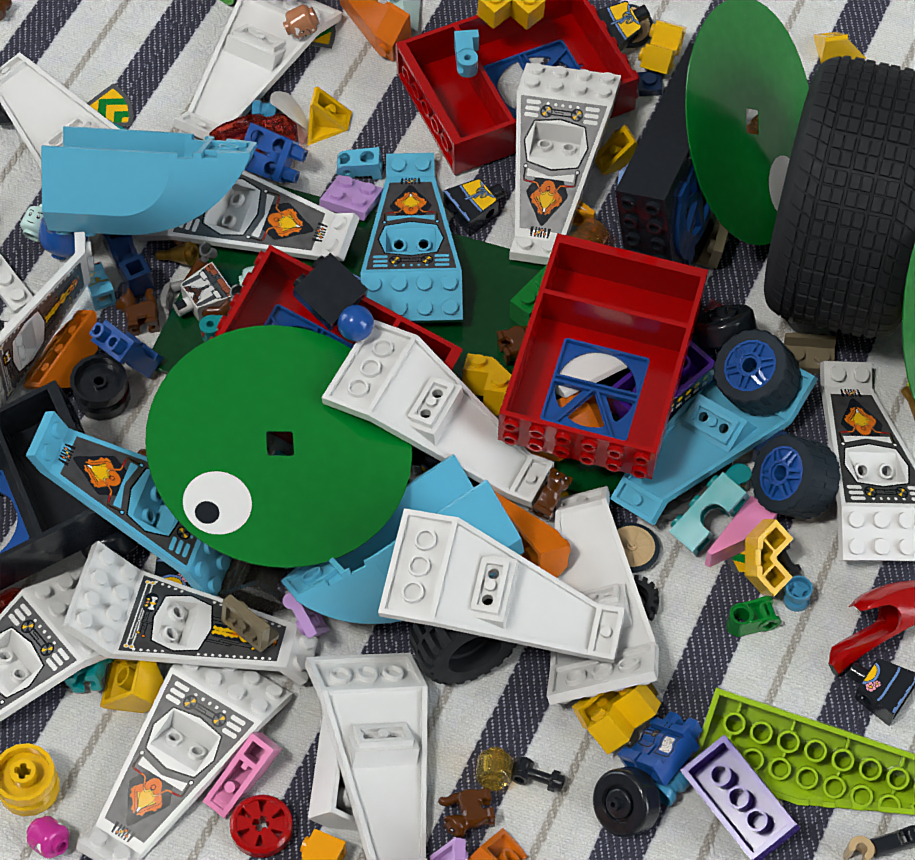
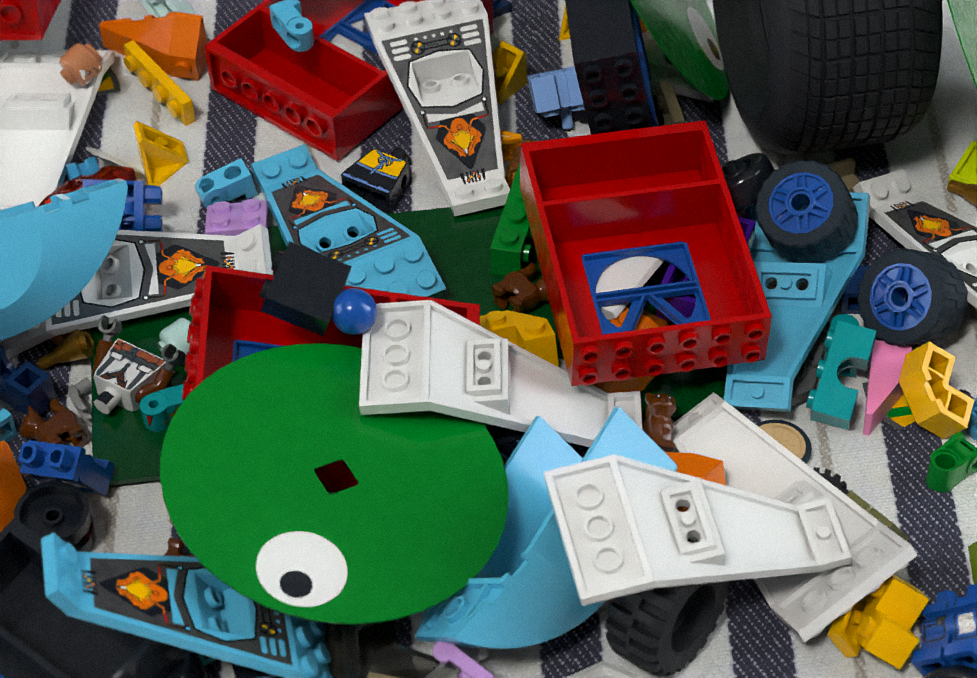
camera: 25 degrees left, 10 degrees down
(359, 60) = (161, 85): none -> yellow plate
(664, 635) = (880, 517): none -> olive piece

